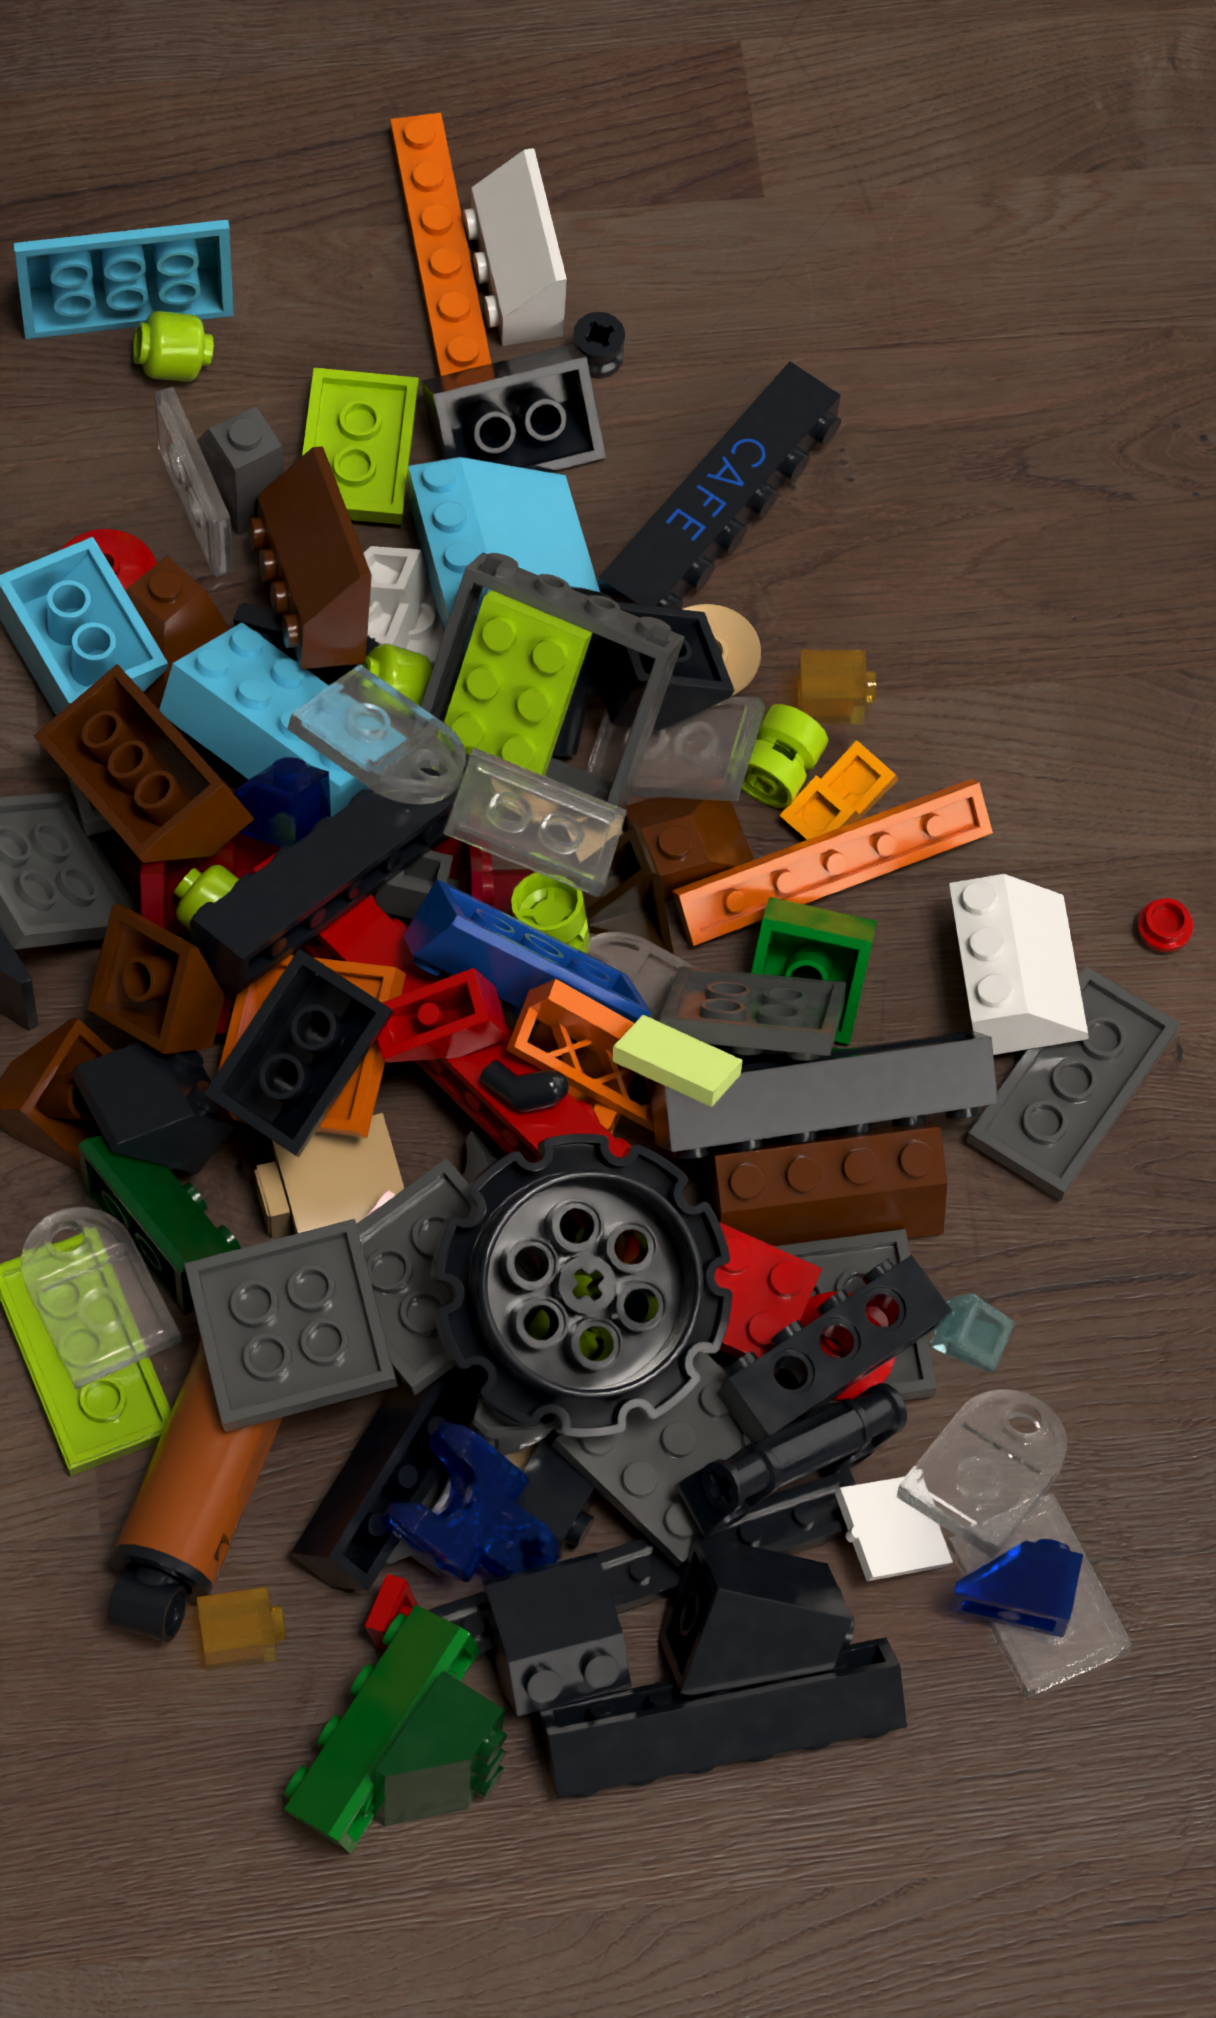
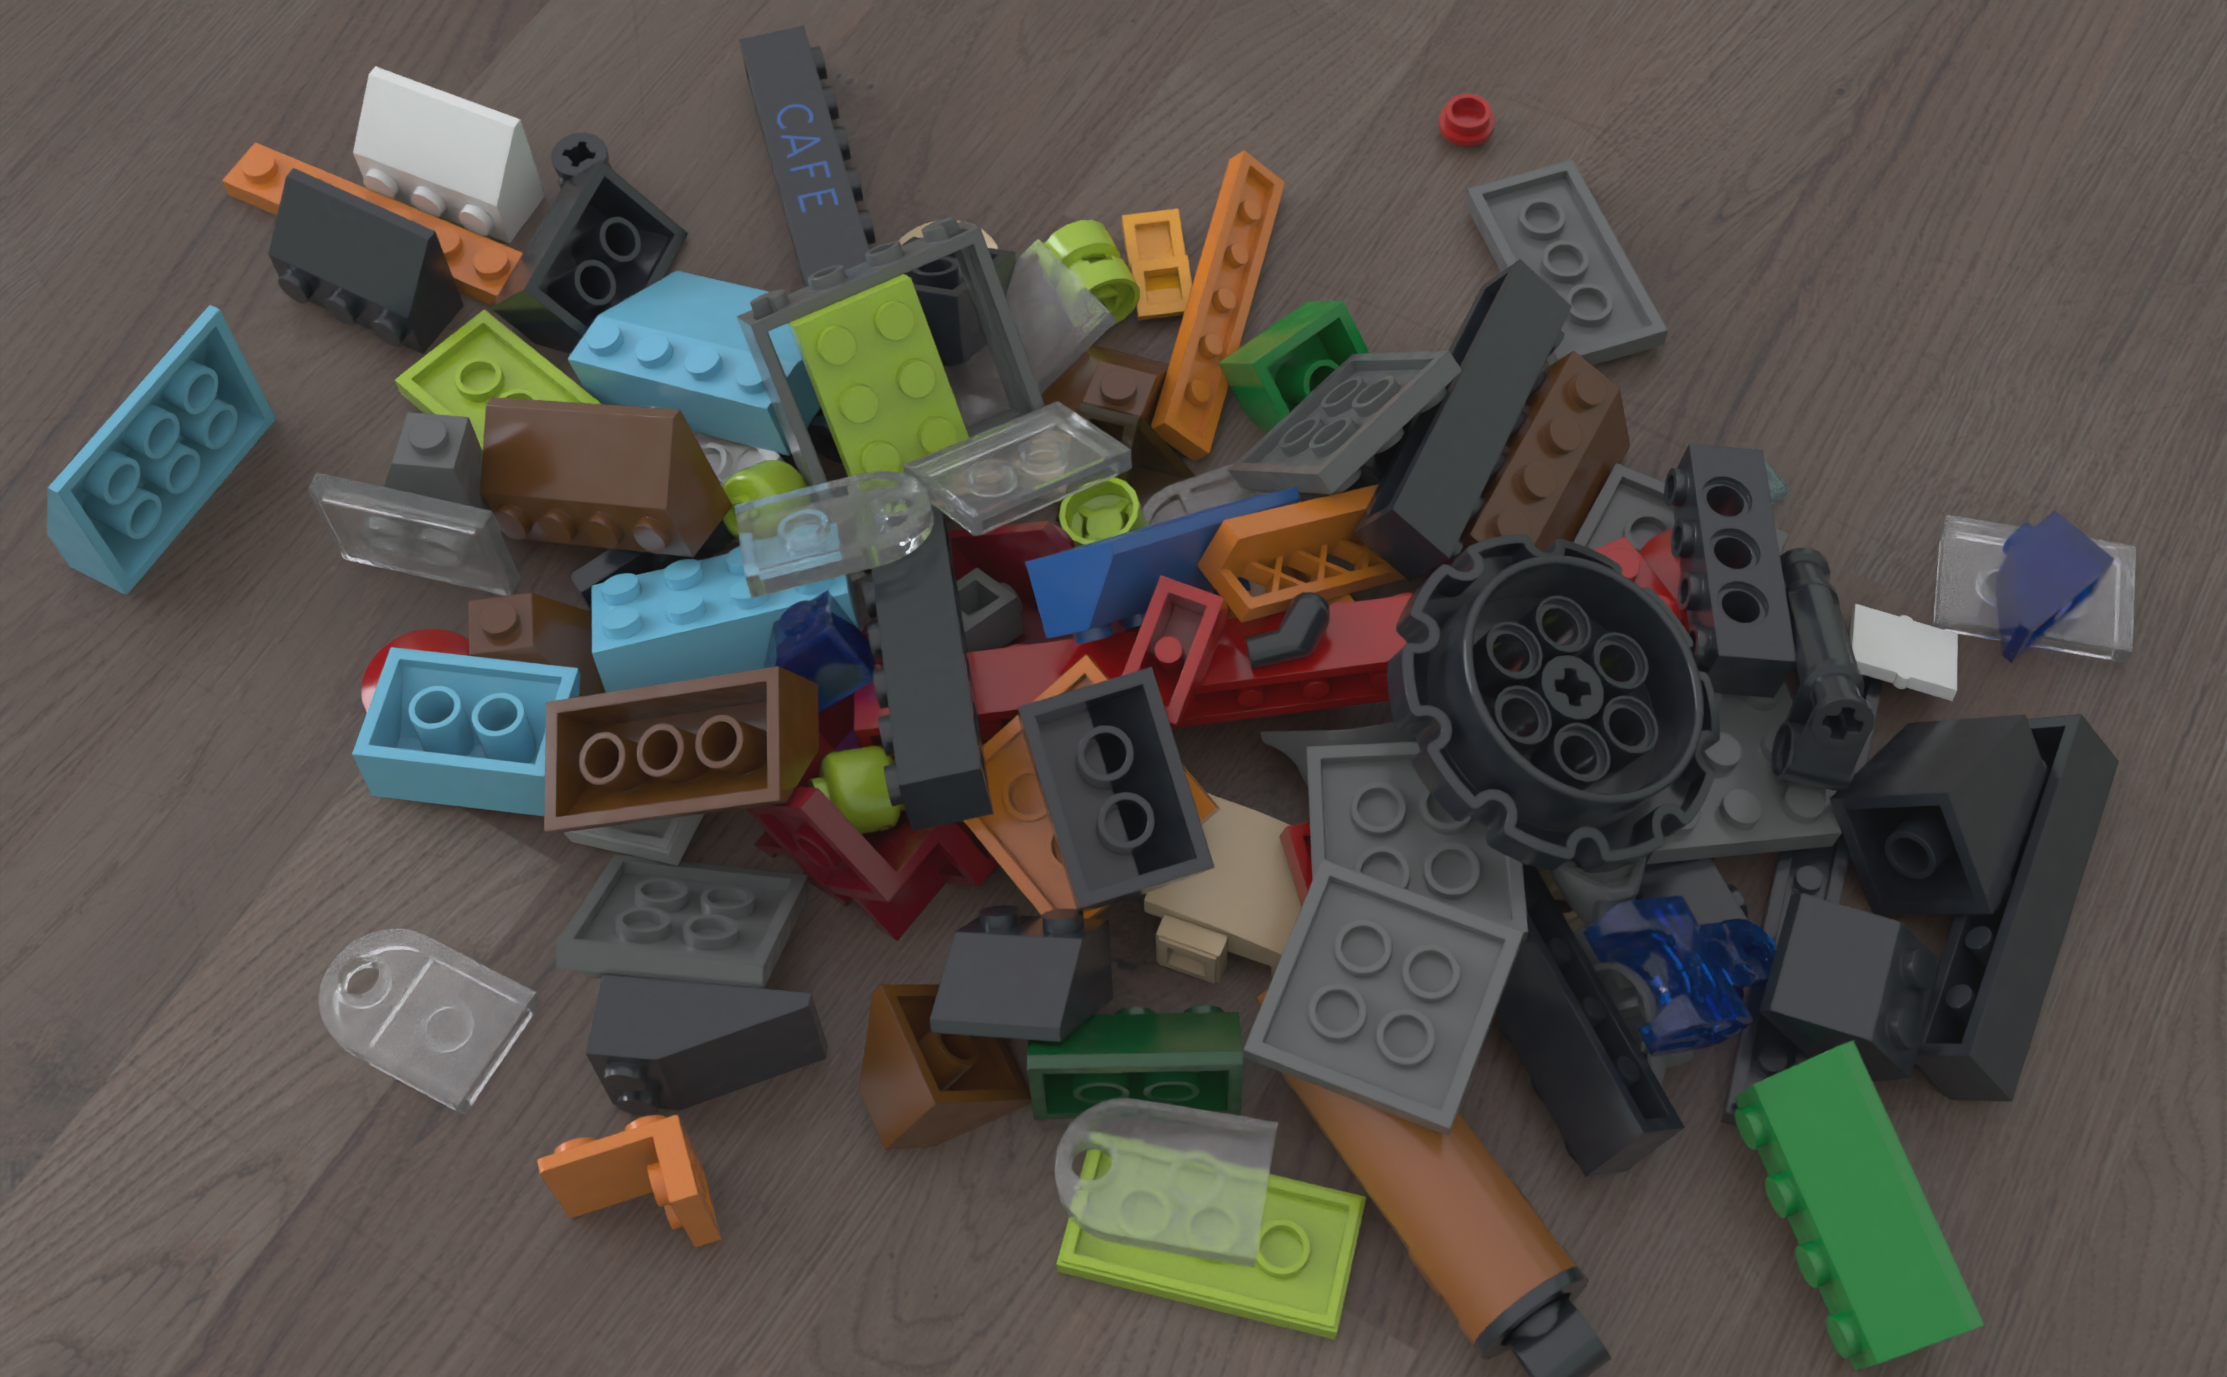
camera: 45 degrees left, 5 degrees down
(155, 985) = (909, 885): reddish brown slope -> none
(172, 346) = (260, 474): lime head -> none
(239, 1628) = (1631, 1281): clear yellow brick -> none
(381, 273) = (362, 263): none -> black slope
(392, 1599) = (1710, 1126): red tile -> none
(441, 1755) = (1952, 1137): dark green slope -> none
(677, 1060) = (1378, 483): yellowish green tile -> none
(835, 685) = (1053, 197): clear yellow brick -> none
(984, 1473) = (1898, 551): clear tile -> none
(1018, 963) = (1426, 233): white slope -> none

